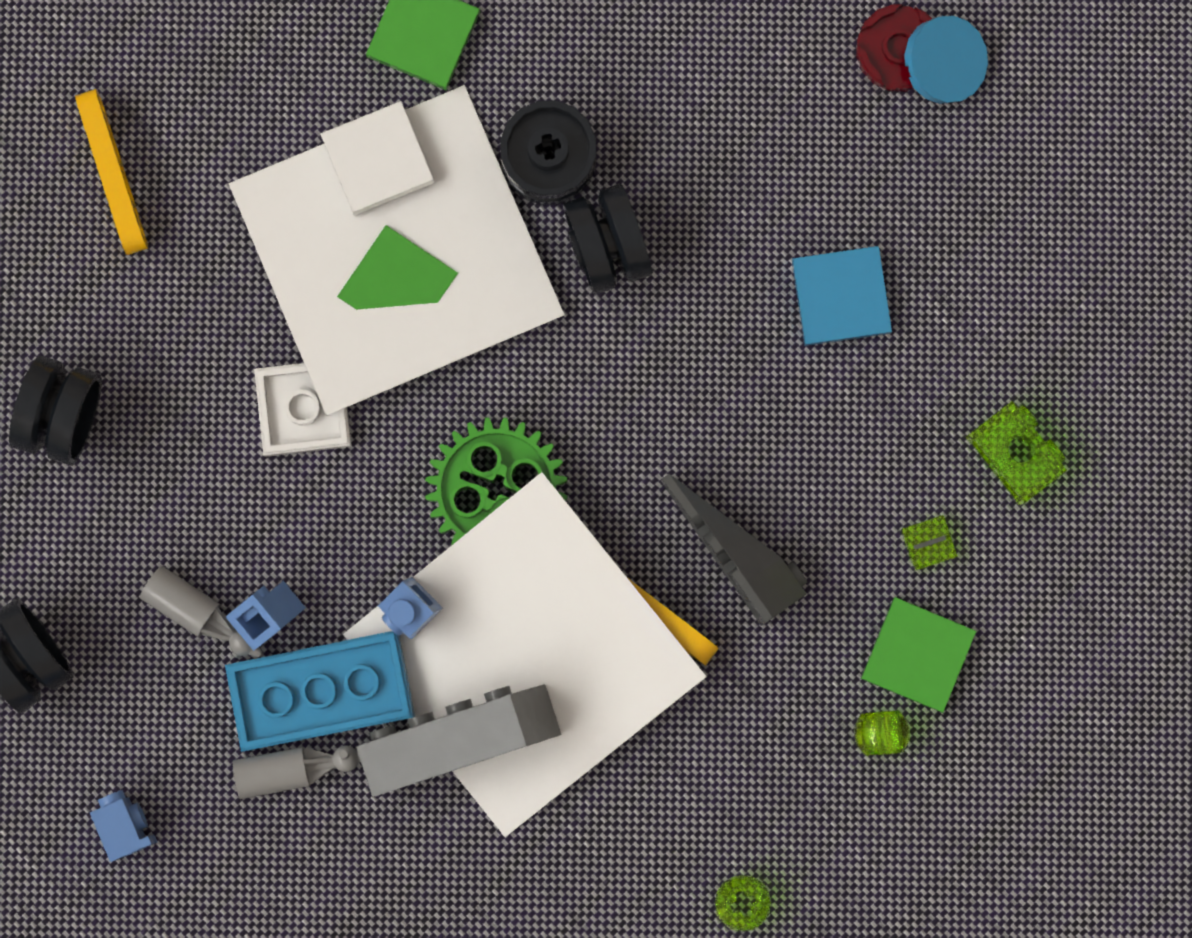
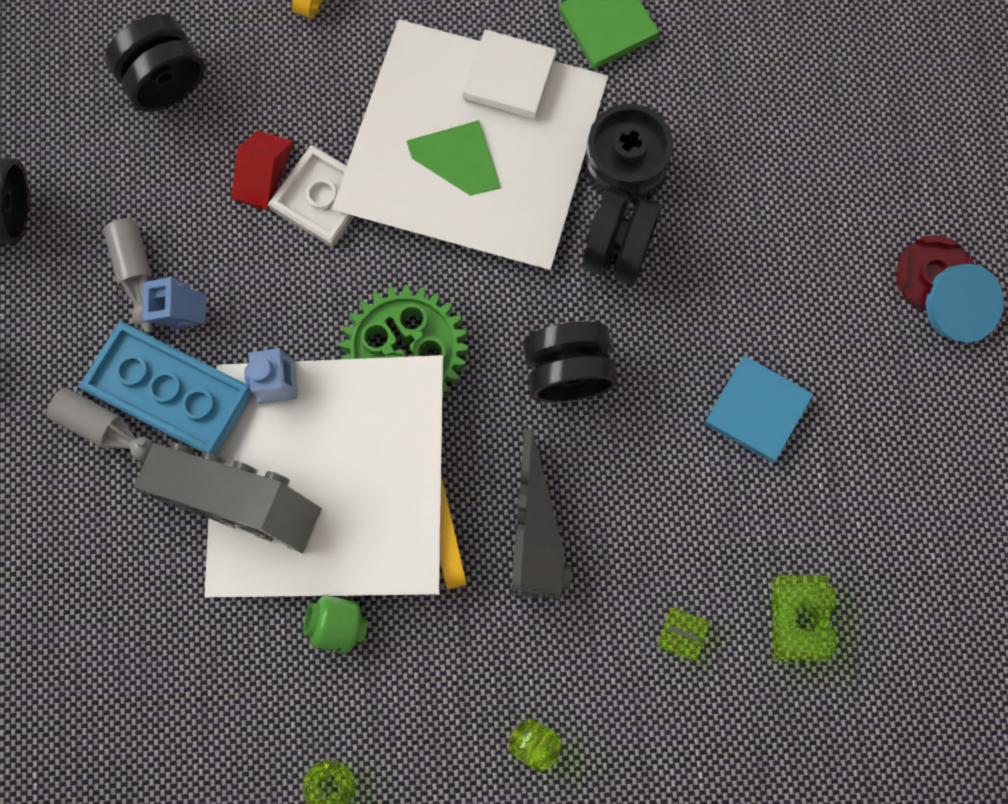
camera: 40 degrees right, 10 degrees down
(227, 426) = (259, 168): none -> red slope
(637, 770) = (334, 624): none -> bright green head
(650, 386) = (569, 362): none -> black wheel
(918, 654) = (609, 710): bright green tile -> none

